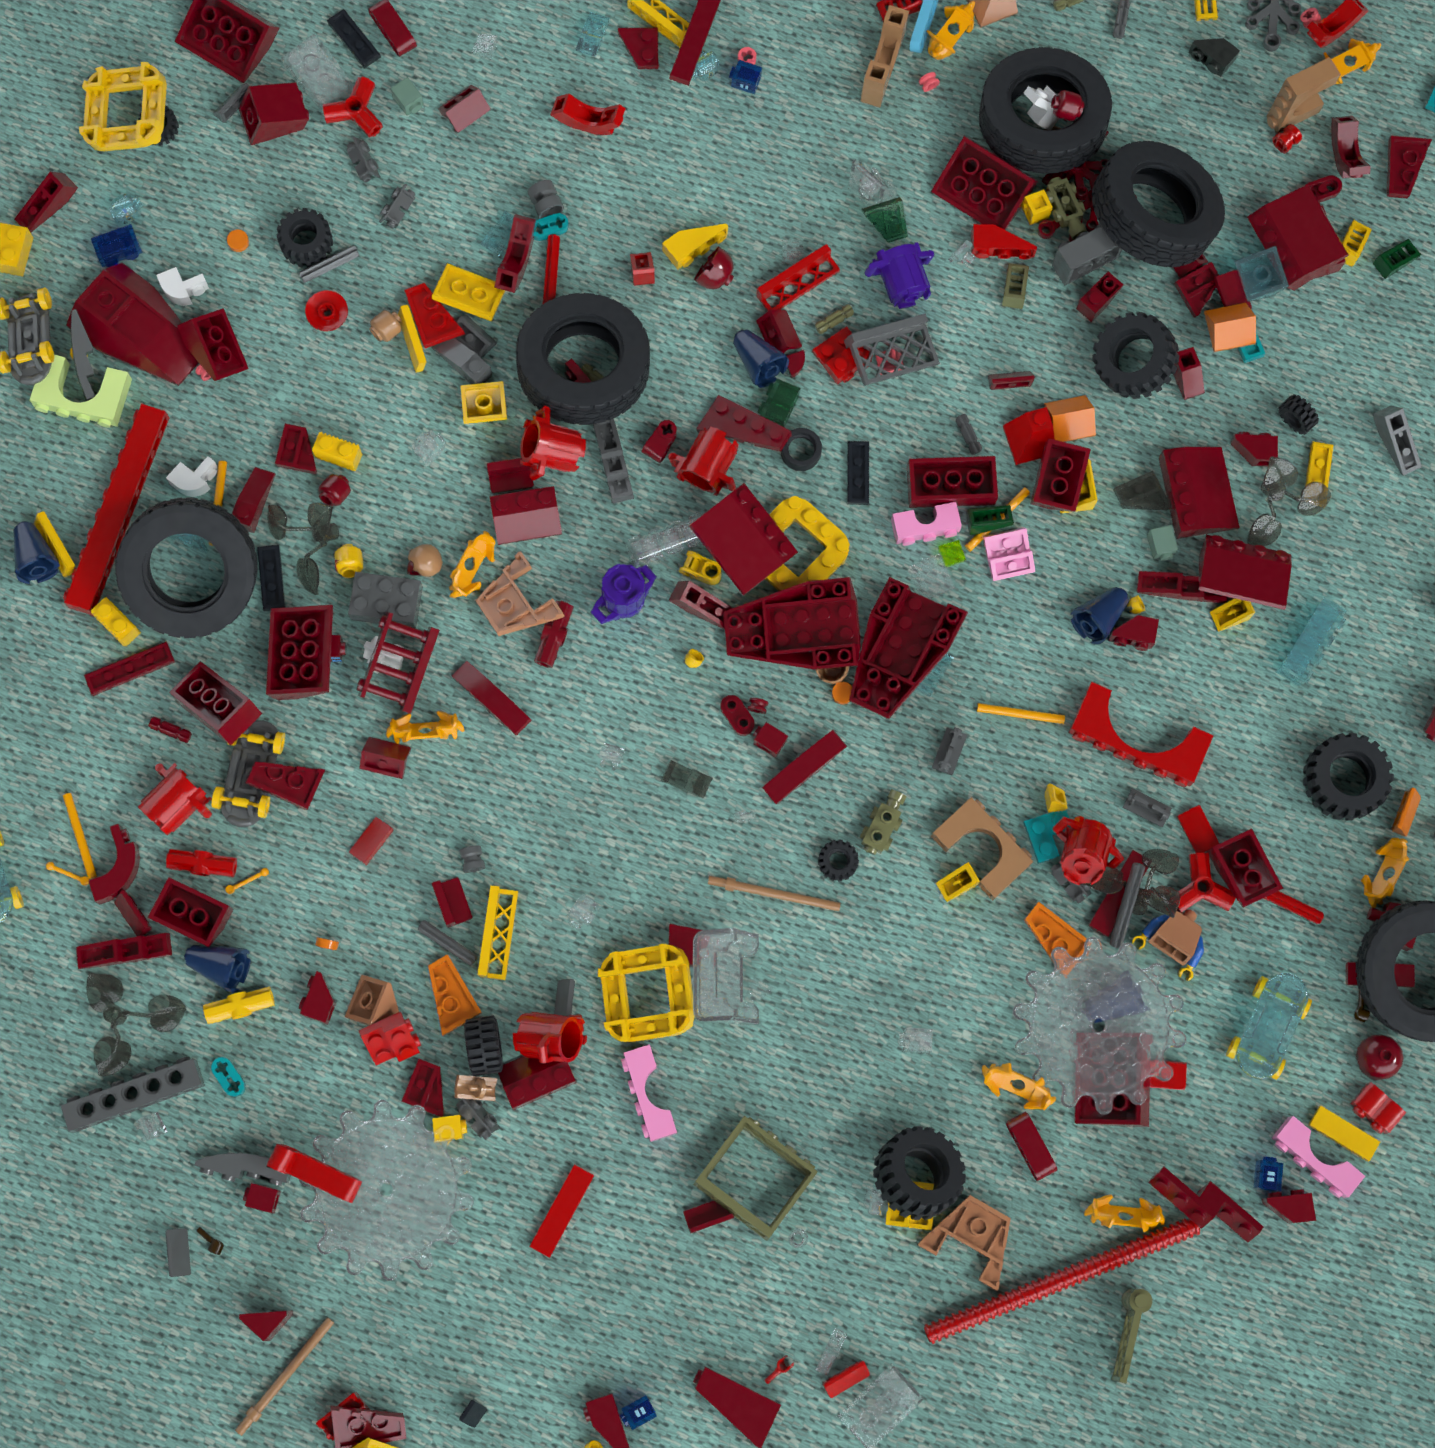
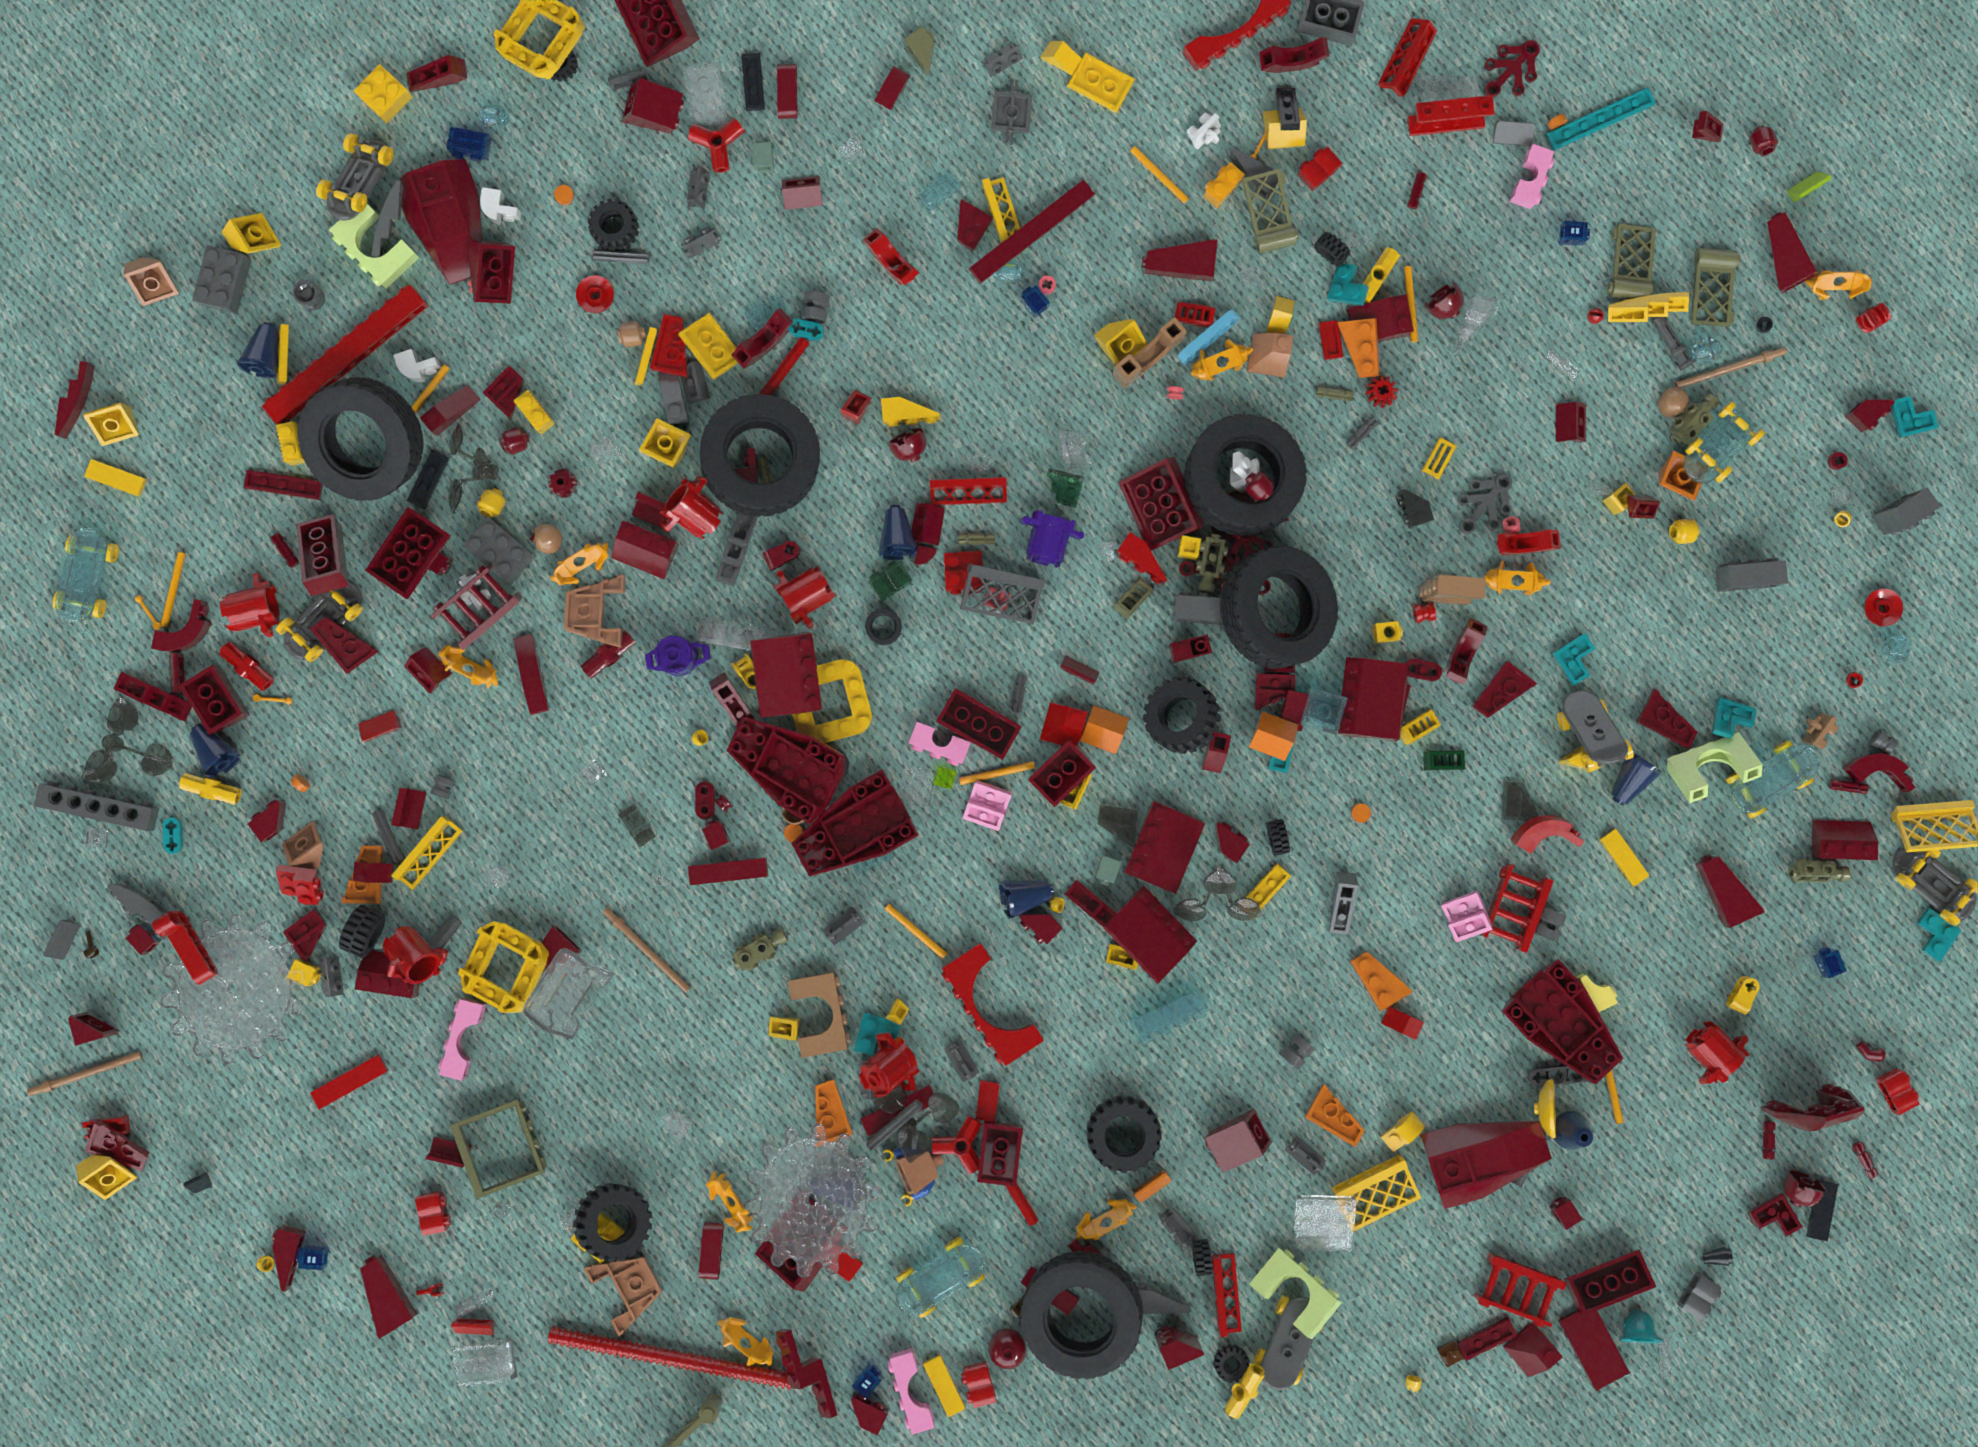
camera: 30 degrees right, 10 degrees up
(46, 473) = (308, 295): none -> dark grey wheel
(412, 505) = (567, 488): none -> dark red brick
(456, 983) = (373, 872): none -> dark red slope
(475, 1087) = (338, 958): medium nougat hips -> none
(731, 1287) = (432, 1213): none -> red brick
(744, 425) = (848, 577): dark red wing -> none
(844, 848) = (696, 956): black tyre -> none
(848, 64) = (1121, 339): none -> yellow slope
(858, 473) = (915, 671): black tile -> none
(989, 525) = (979, 758): dark green slope -> none
(1263, 183) = (1379, 636): none -> yellow brick
(1355, 350) = (1360, 813): none -> orange tile

